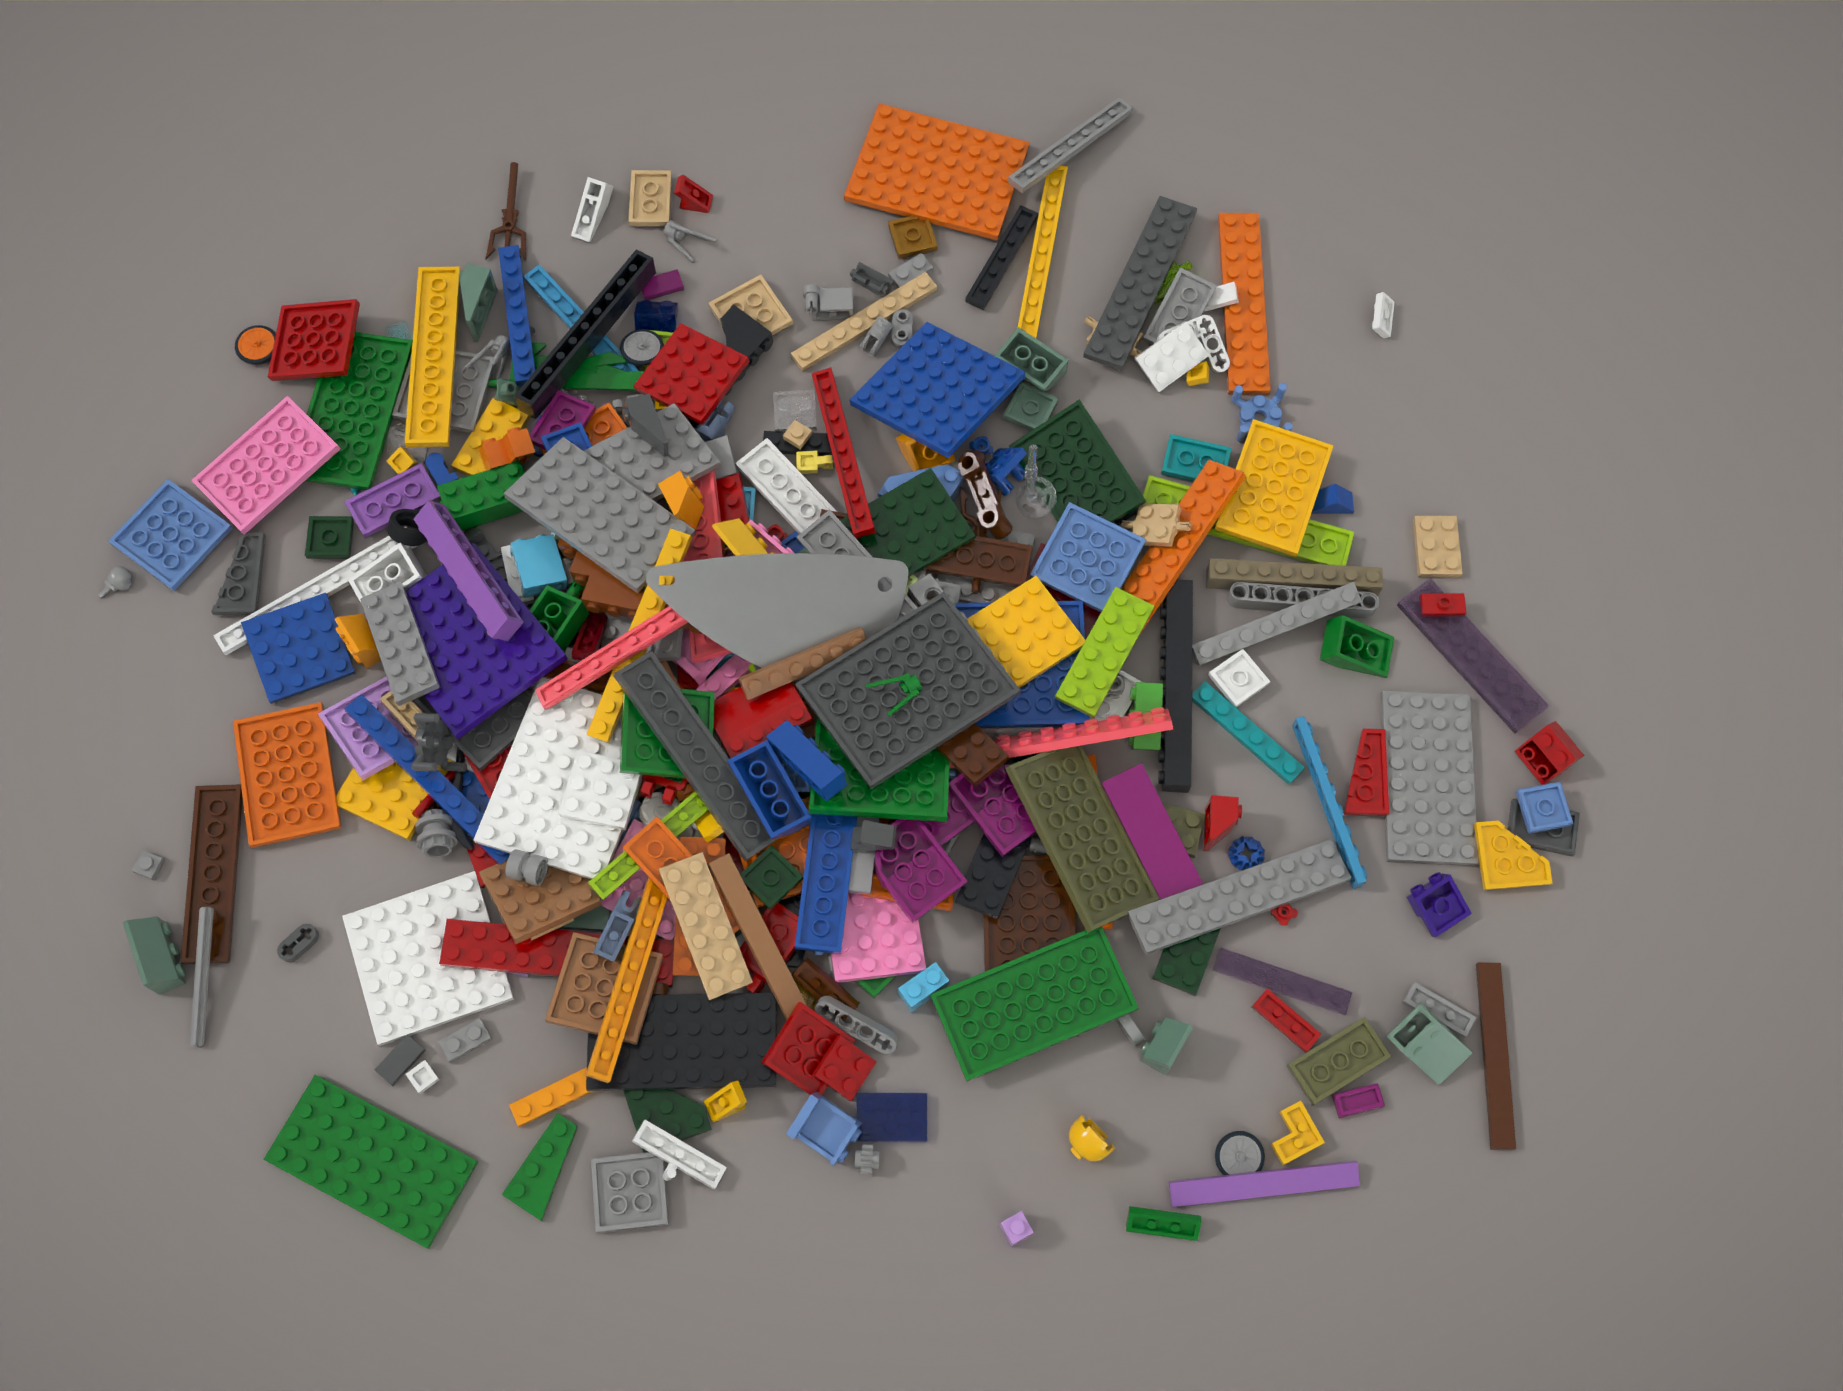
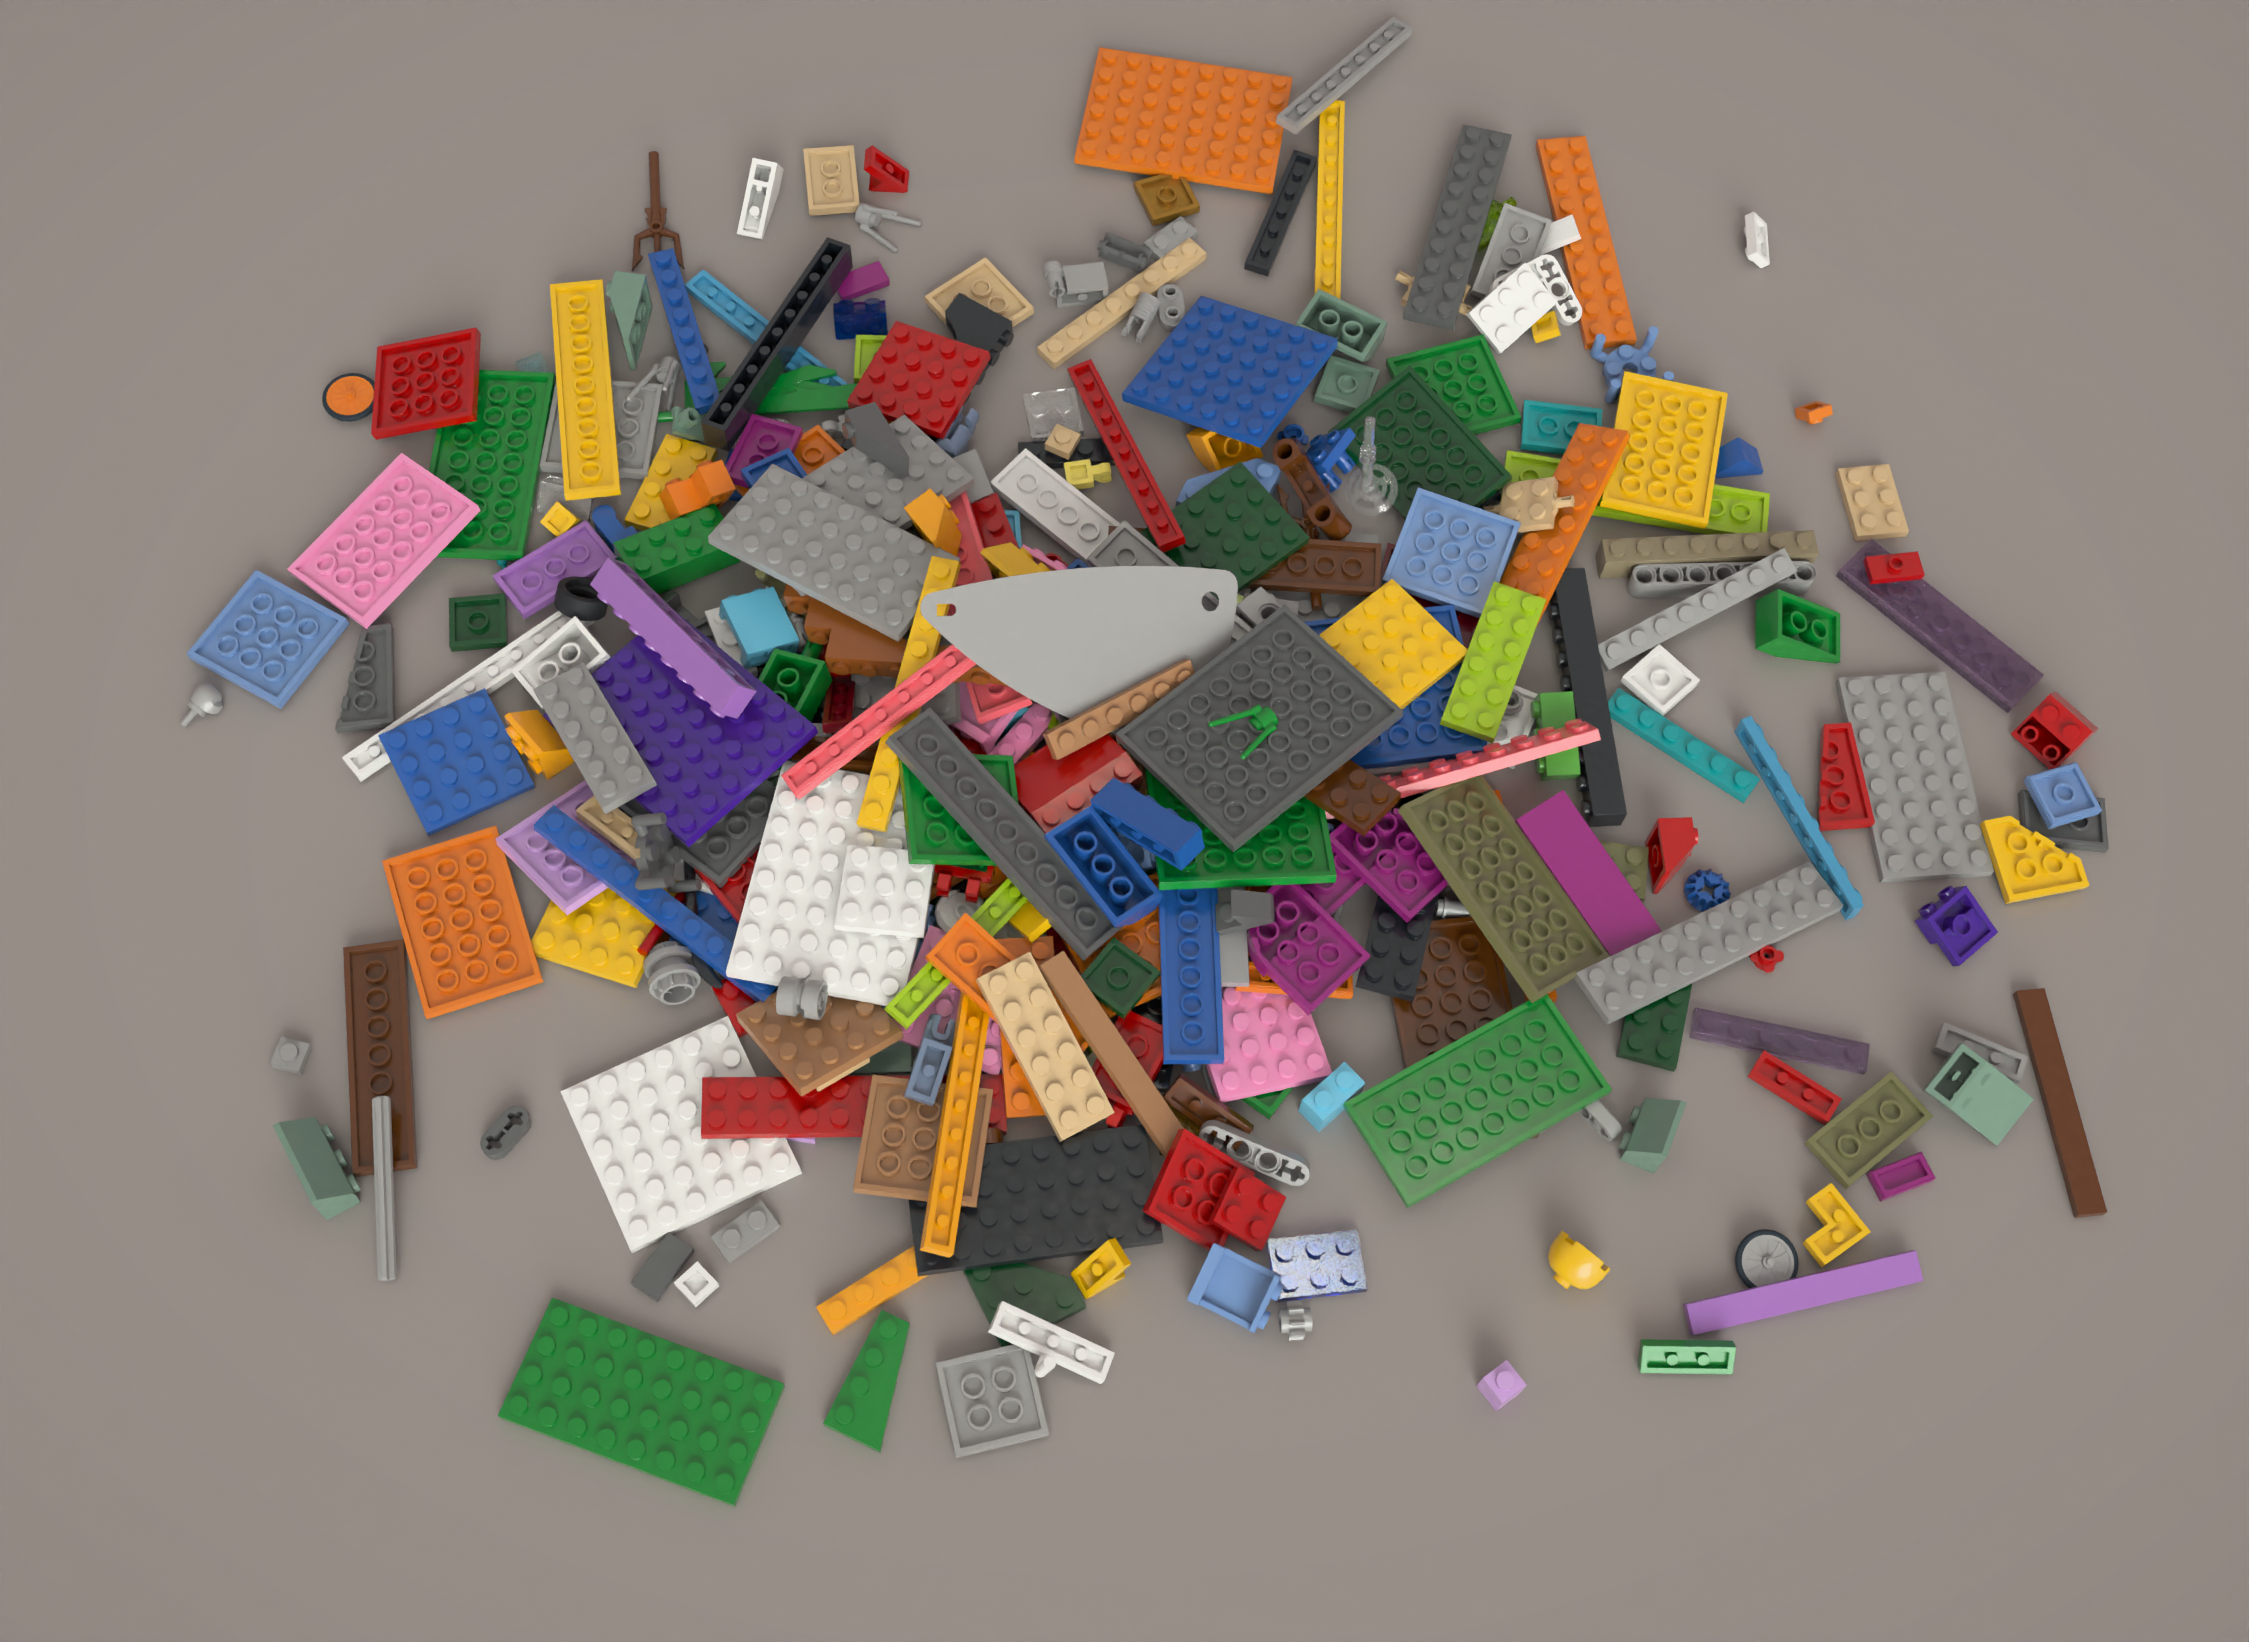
camera: 10 degrees left, 5 degrees down
(641, 347) = (848, 355): light grey wheel -> none
(1123, 415) = (1465, 380): none -> green plate
(1403, 466) = (1813, 412): none -> orange plate

